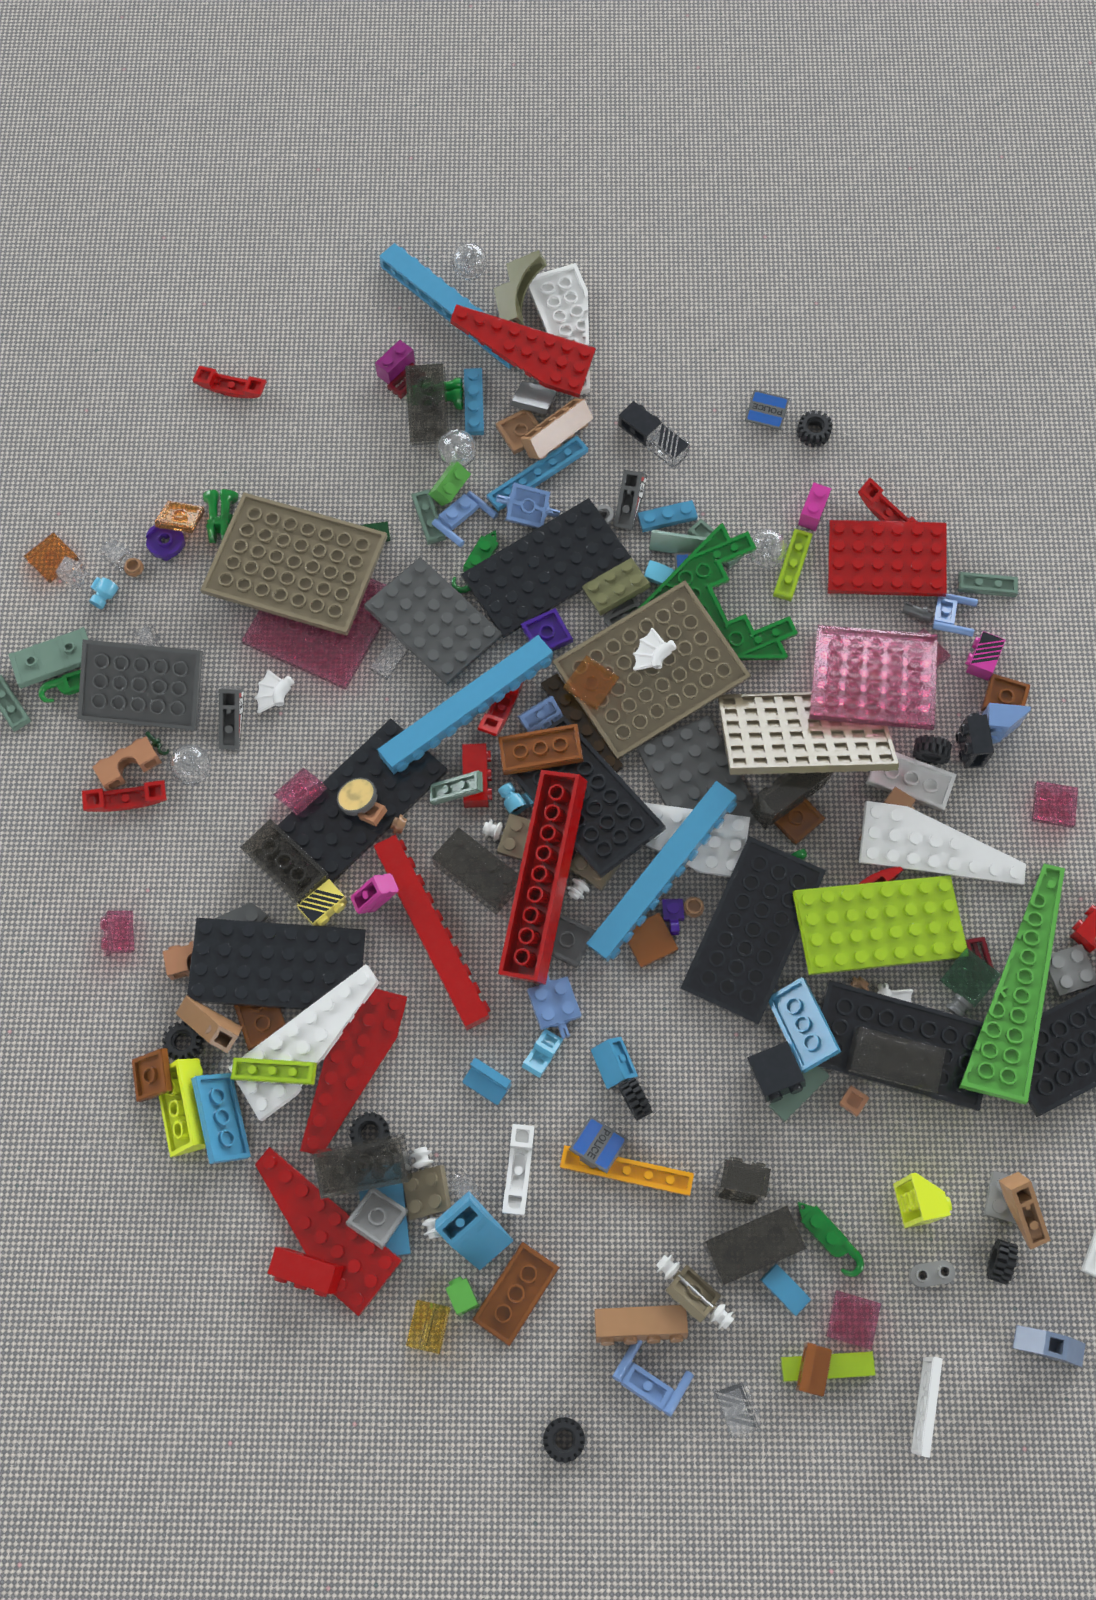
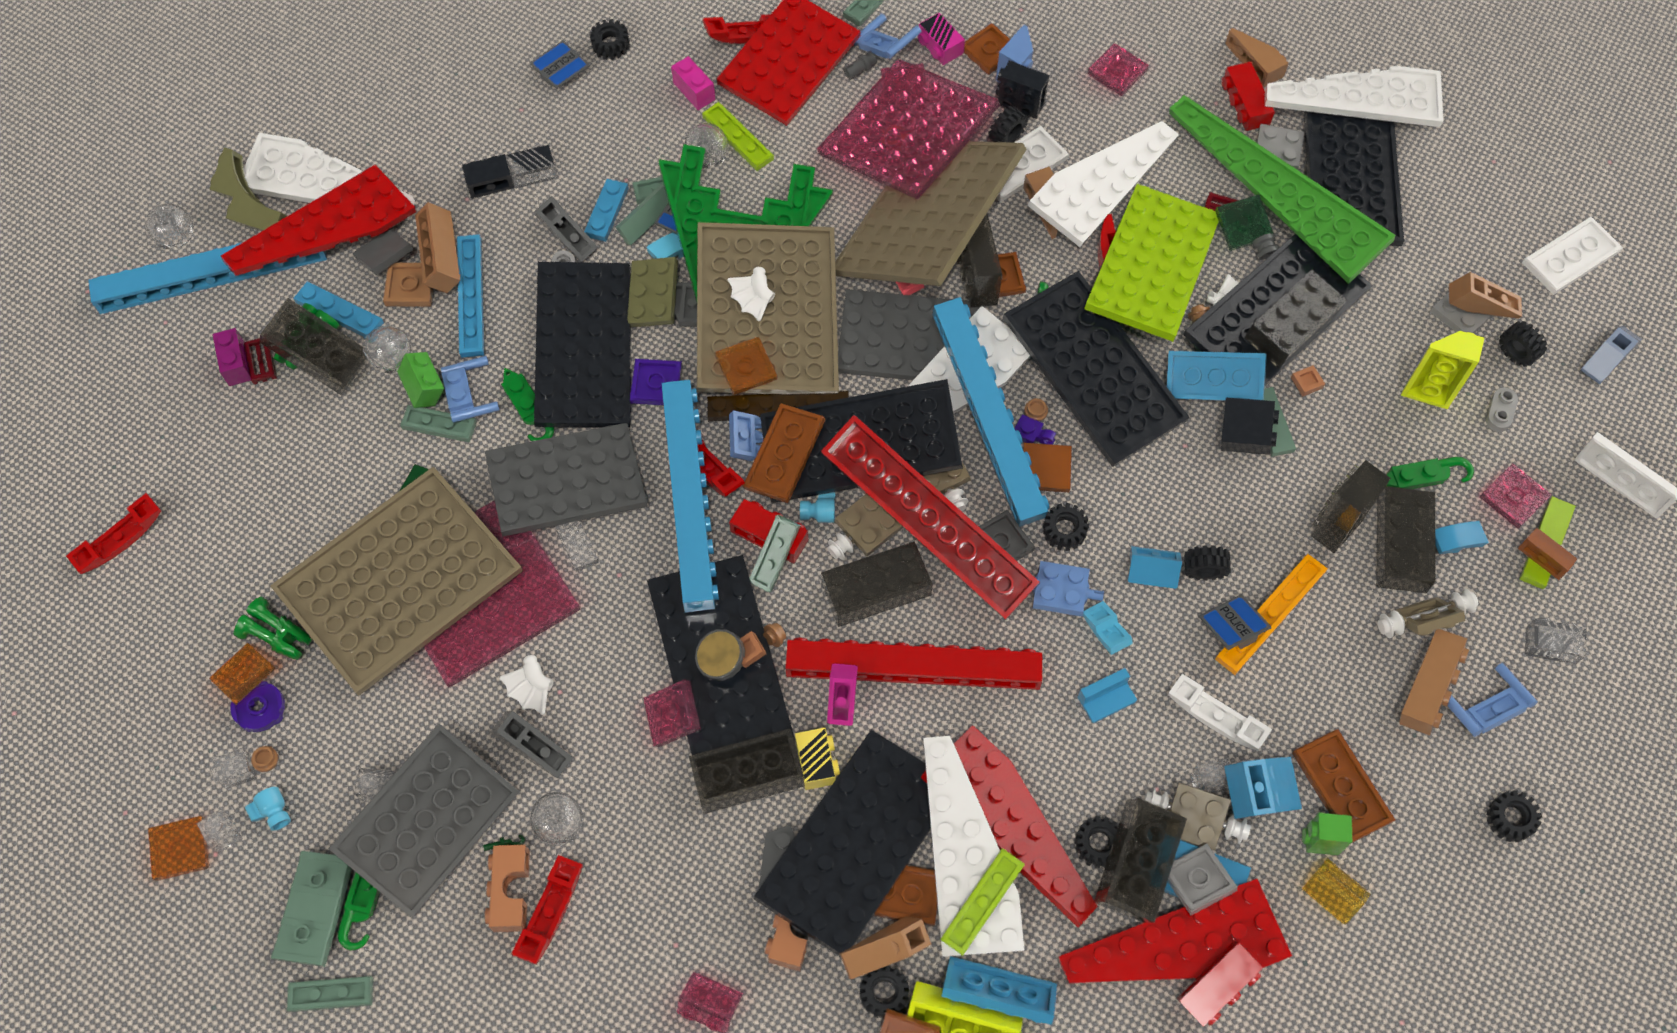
camera: 60 degrees left, 5 degrees down
(527, 506) = (503, 322): medium blue plate -> none
(609, 967) = (1061, 539): none -> black tyre

